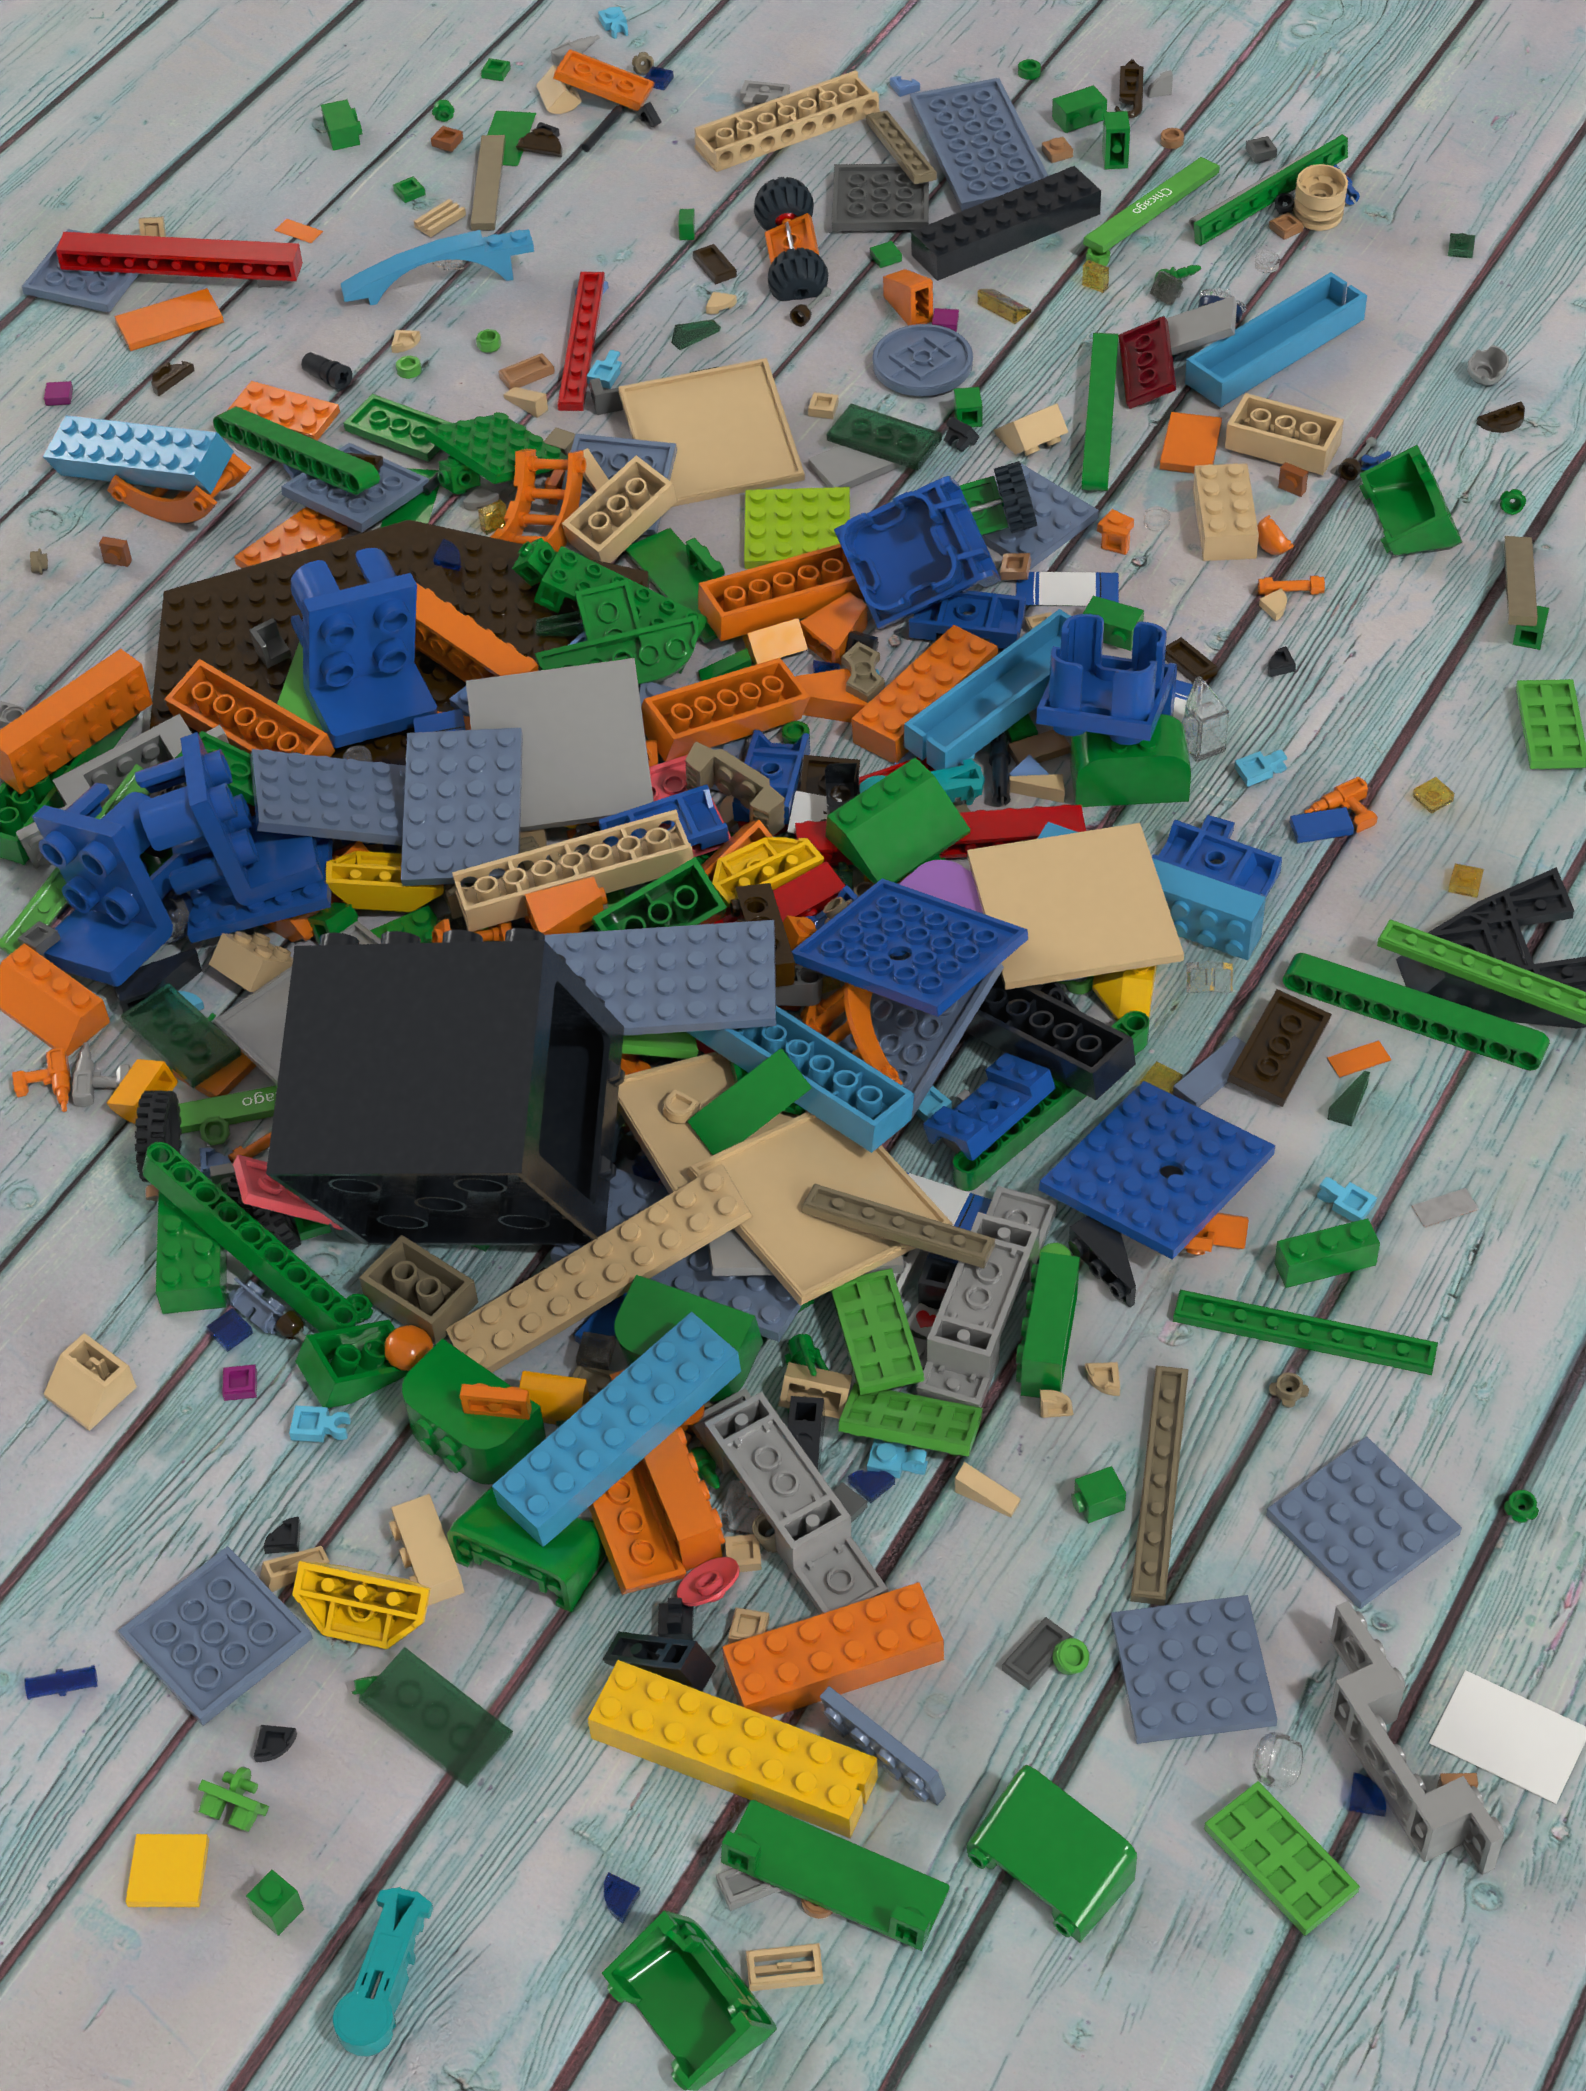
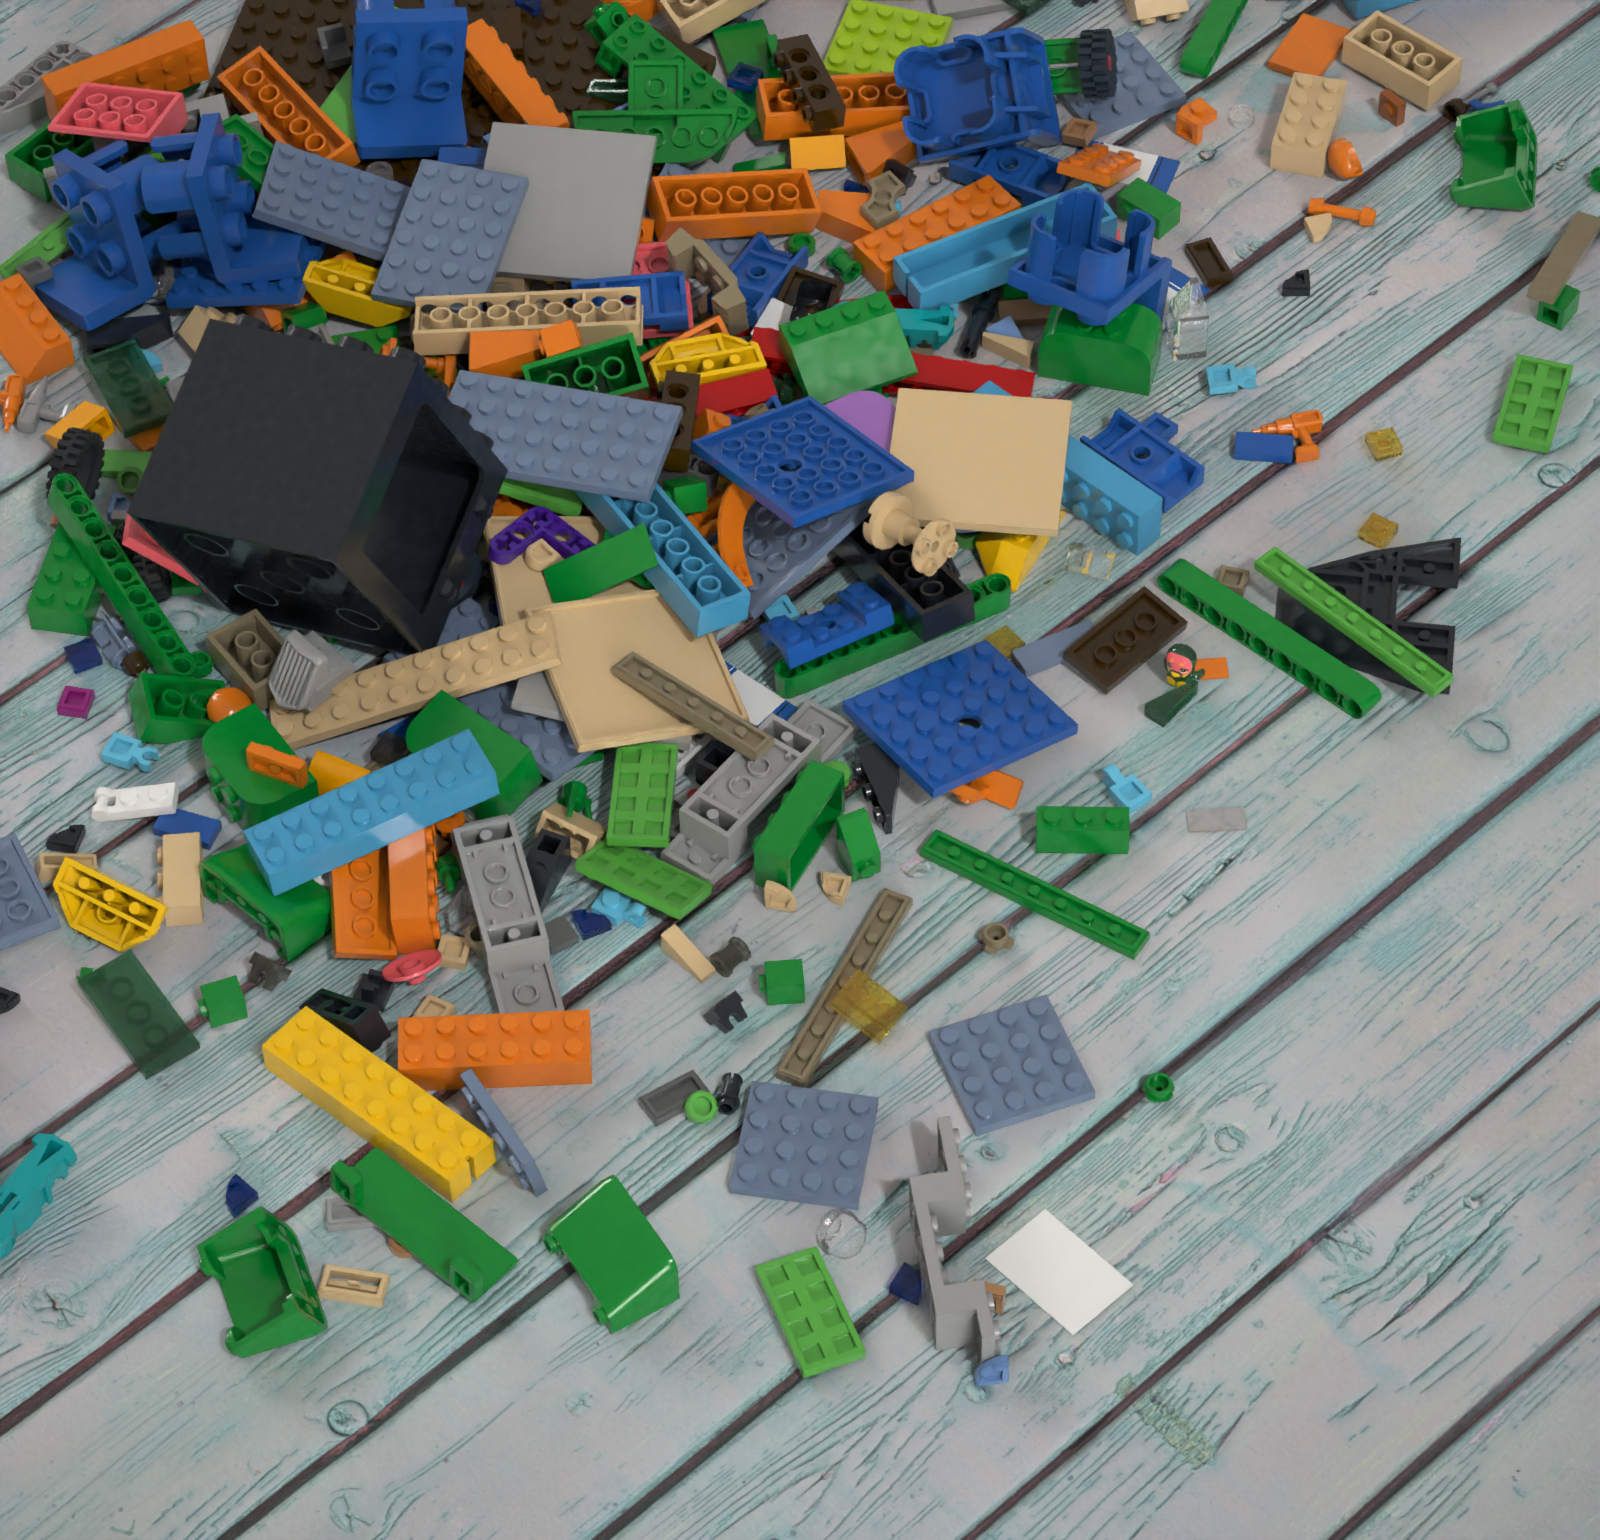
camera: 15 degrees right, 0 degrees up
(86, 756) = (121, 113): none -> coral slope
(344, 1477) = (135, 802): none -> white plate
(400, 1487) = (188, 822): none -> blue tile
(484, 1291) = (306, 671): none -> light grey piece
(521, 1677) = (222, 1002): none -> green brick
(551, 1622) = (266, 966): none -> clear smoke tile
(622, 881) = (560, 338): none -> orange slope
(674, 1078) = (547, 527): none -> dark purple beam
(679, 586) = (744, 78): none -> clear blue plate
(753, 575) = (809, 83): none -> dark brown brick
(803, 1004) = (687, 493): none -> green brick
(846, 743) = (844, 265): none -> green bush
(1029, 987) = (894, 523): none -> tan piece
(1033, 1481) = (730, 956): none -> clear smoke bush
(1049, 1542) = (722, 1010): none -> black tile
(1055, 592) = (1099, 165): none -> orange plate
(1094, 1636) = (728, 1098): none -> black pin
(1115, 1329) = (857, 845): none -> green slope
(1197, 1498) = (868, 1006): none -> clear yellow plate
(1347, 1060) = (1181, 664): none -> animal
(1353, 959) = (1234, 578): none -> dark tan tile
(1498, 1871) = (992, 1371): none -> medium blue tile

